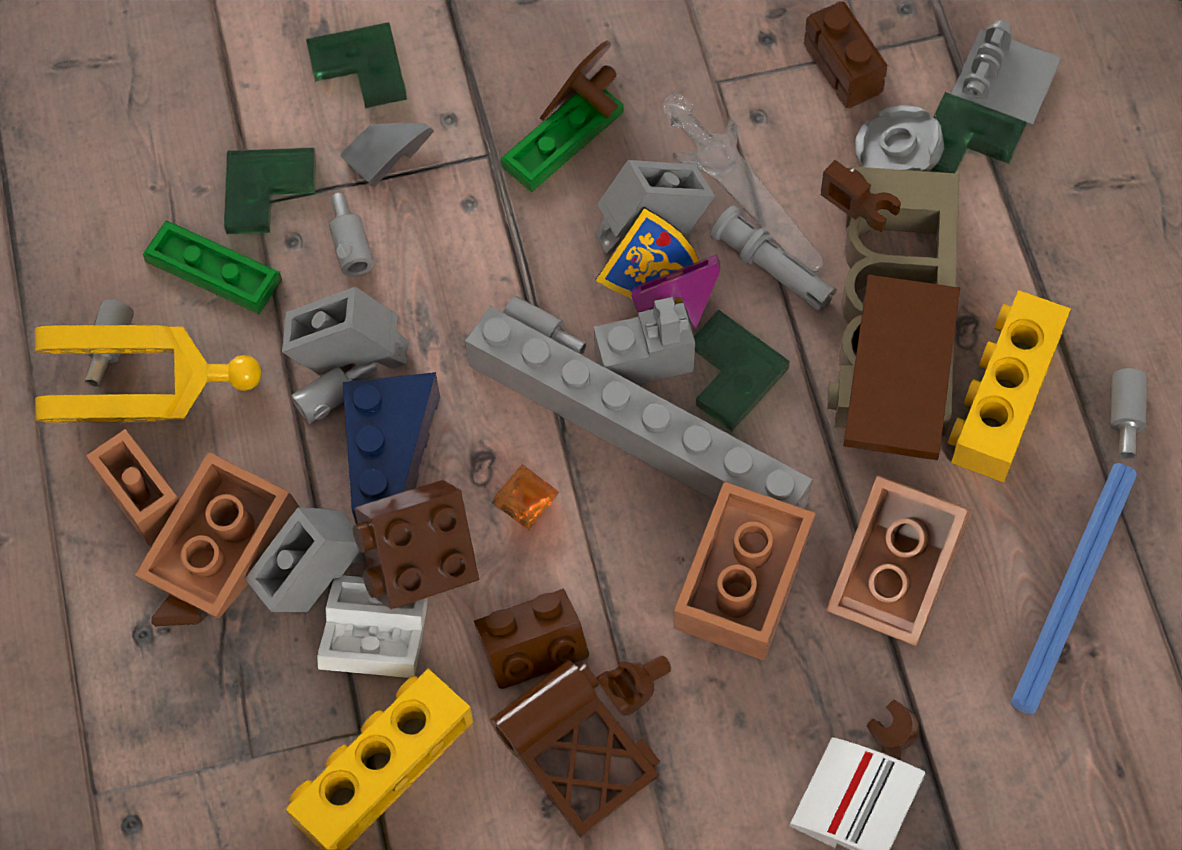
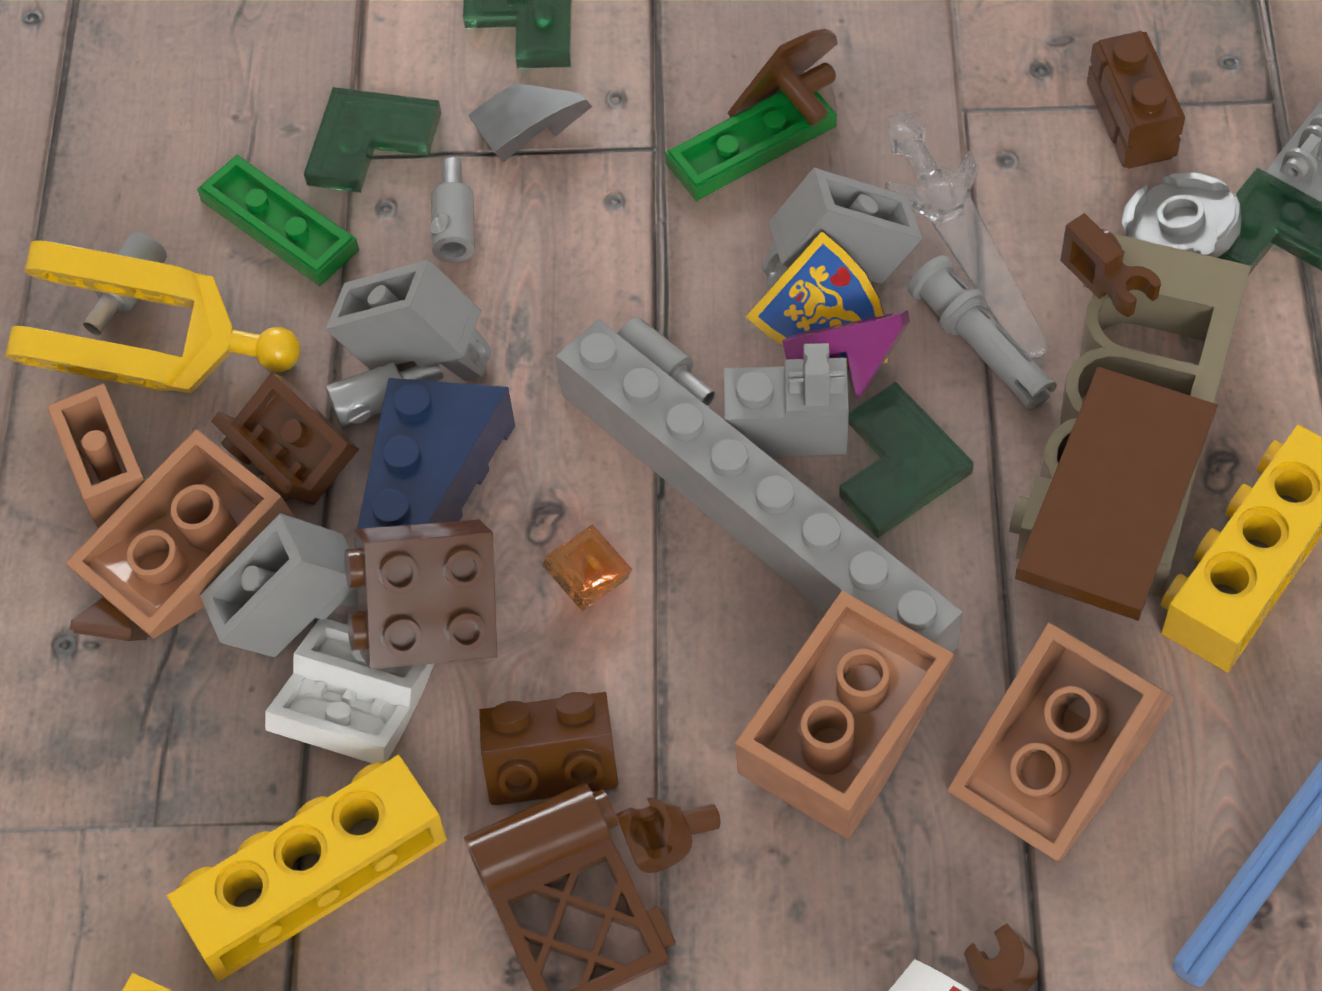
camera: 15 degrees right, 5 degrees down
(272, 443) = (287, 441): none -> reddish brown bracket

